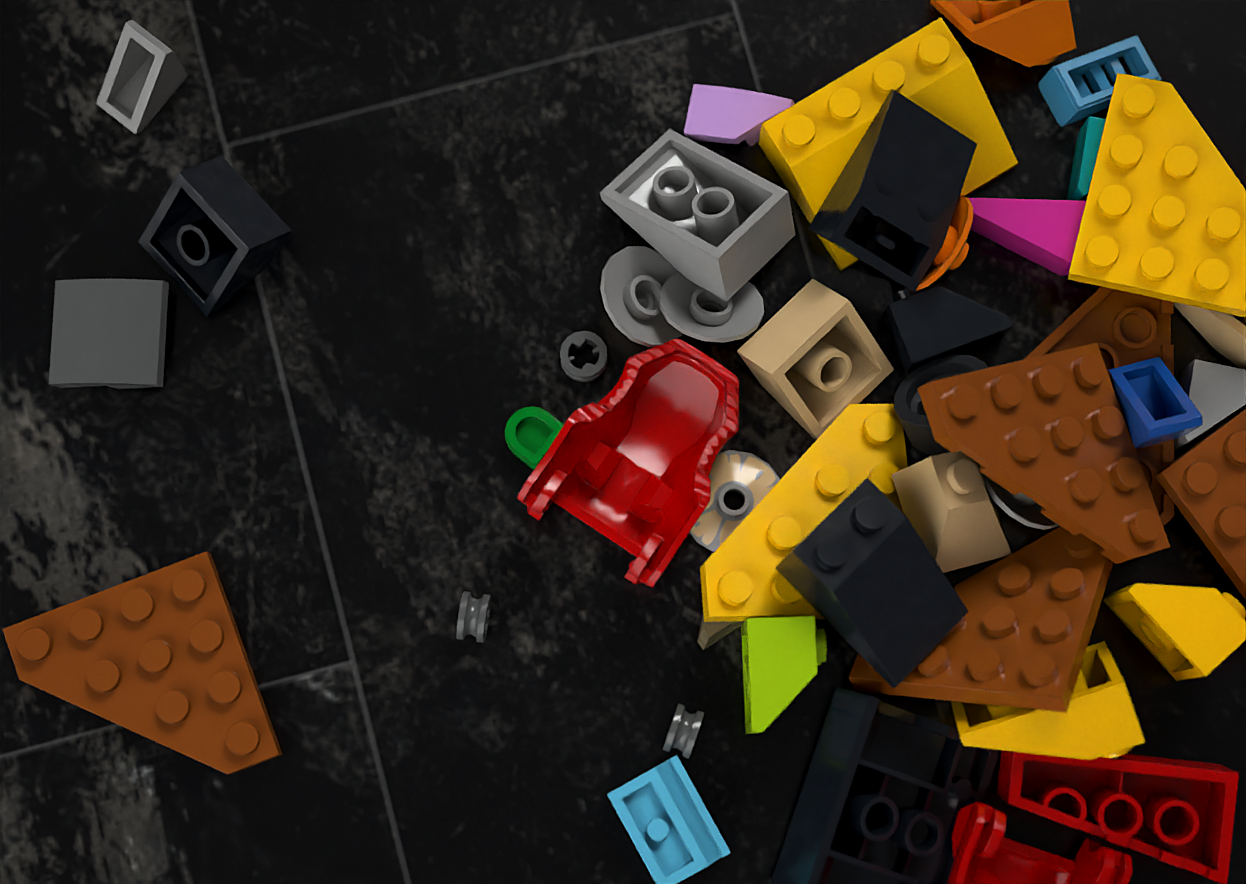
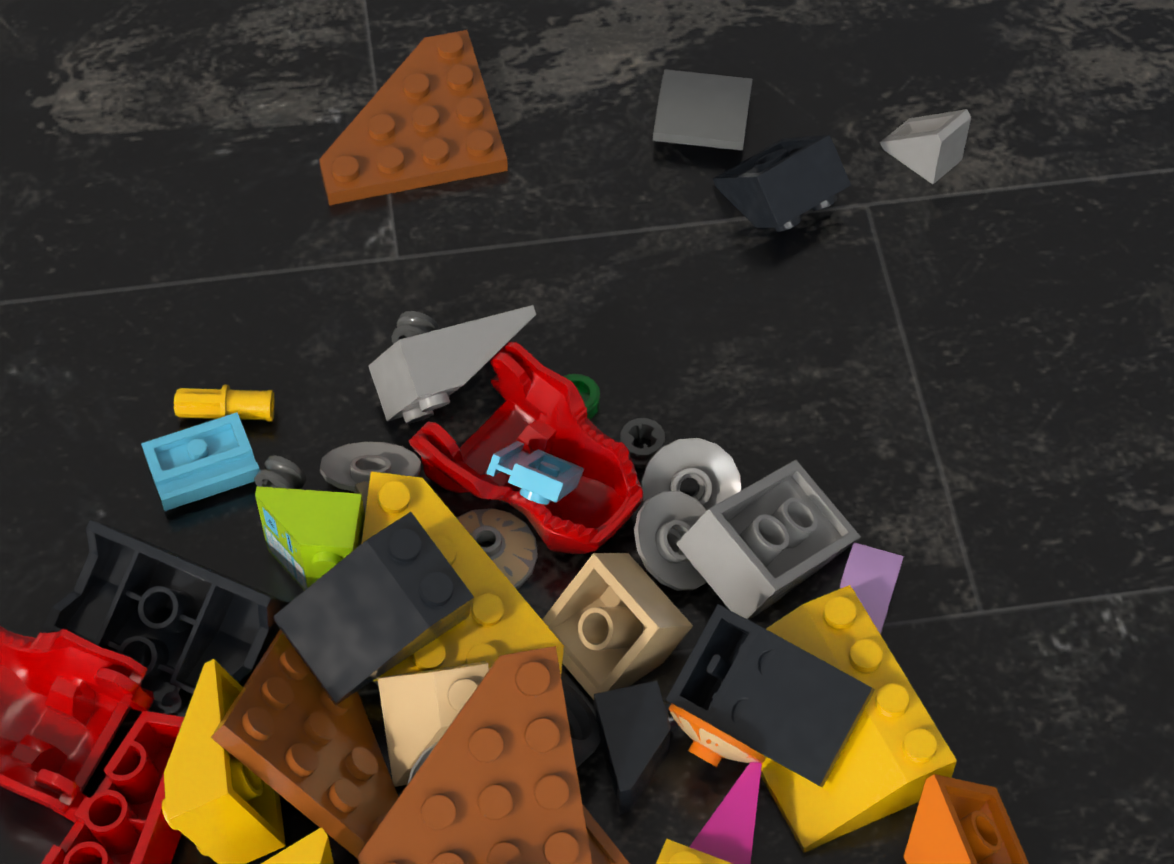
camera: 95 degrees right, 25 degrees down
(530, 563) = (429, 367): none -> light grey slope
(588, 815) = (223, 402): none -> yellow axle
(642, 629) = (355, 461): none -> light grey dish
(675, 446) = (537, 474): none -> plate

